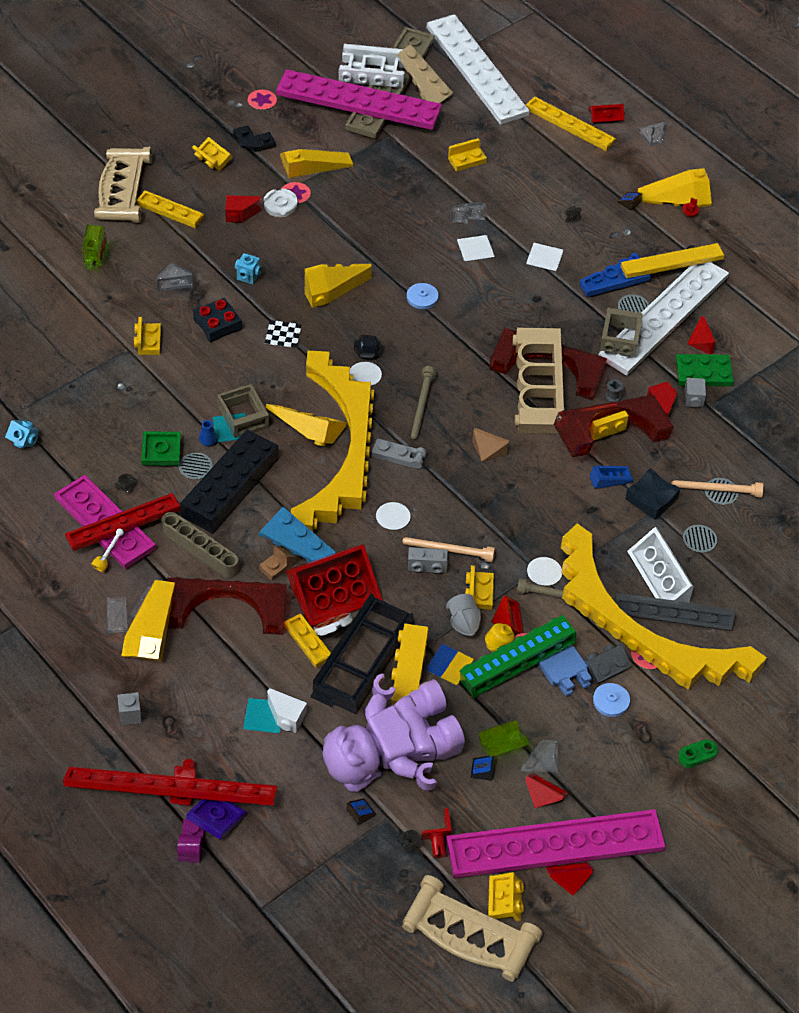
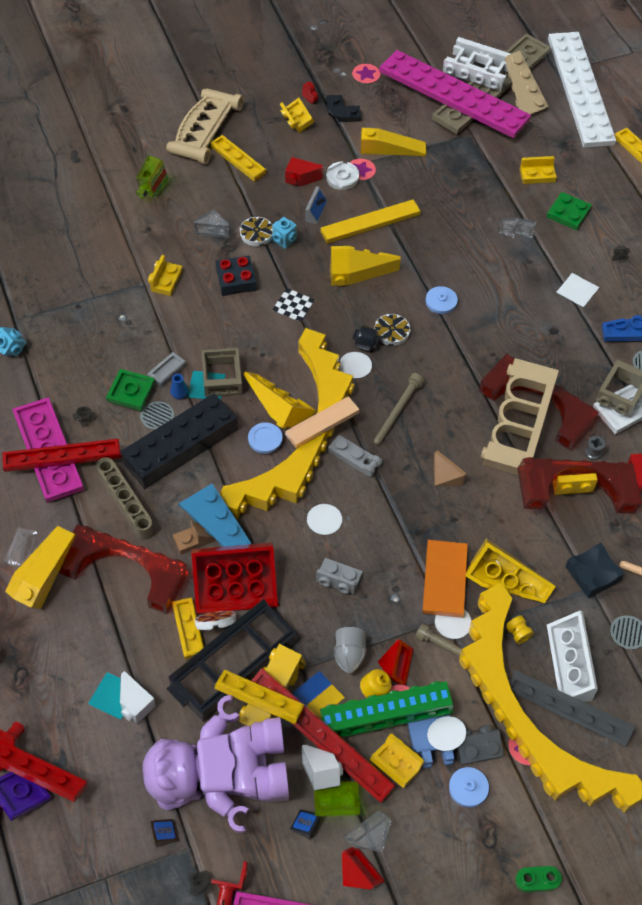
camera: 20 degrees right, 5 degrees up
(101, 563) = (25, 490): hinge -> none
(187, 421) = (167, 368): none -> light grey tile
(215, 130) = (309, 92): none -> red tile
(219, 274) = (256, 231): none -> tile
(267, 237) = (315, 206): none -> slope
(309, 459) = (265, 438): none -> light blue piece
(325, 239) = (370, 221): none -> yellow tile
(360, 429) = (322, 422): none -> light nougat tile
(389, 332) = (392, 329): none -> tile
(406, 669) = (259, 696): none -> yellow tile
(470, 689) = (328, 740): none -> red tile
(475, 248) = (512, 264): white sticker -> none
(479, 716) = (321, 767): none -> white slope
(480, 588) = (379, 622): yellow bracket -> none
(485, 553) = (400, 587): light nougat piece -> none
(509, 186) = (569, 211): none -> green plate
(523, 536) = (445, 578): none -> orange tile
(543, 693) = (397, 760): none -> yellow bracket
(563, 513) = (496, 566): none -> yellow wedge
(577, 659) = (446, 733): none -> white sticker
(603, 476) = (547, 540): blue slope -> none
(606, 560) = (519, 629): none -> yellow wheel

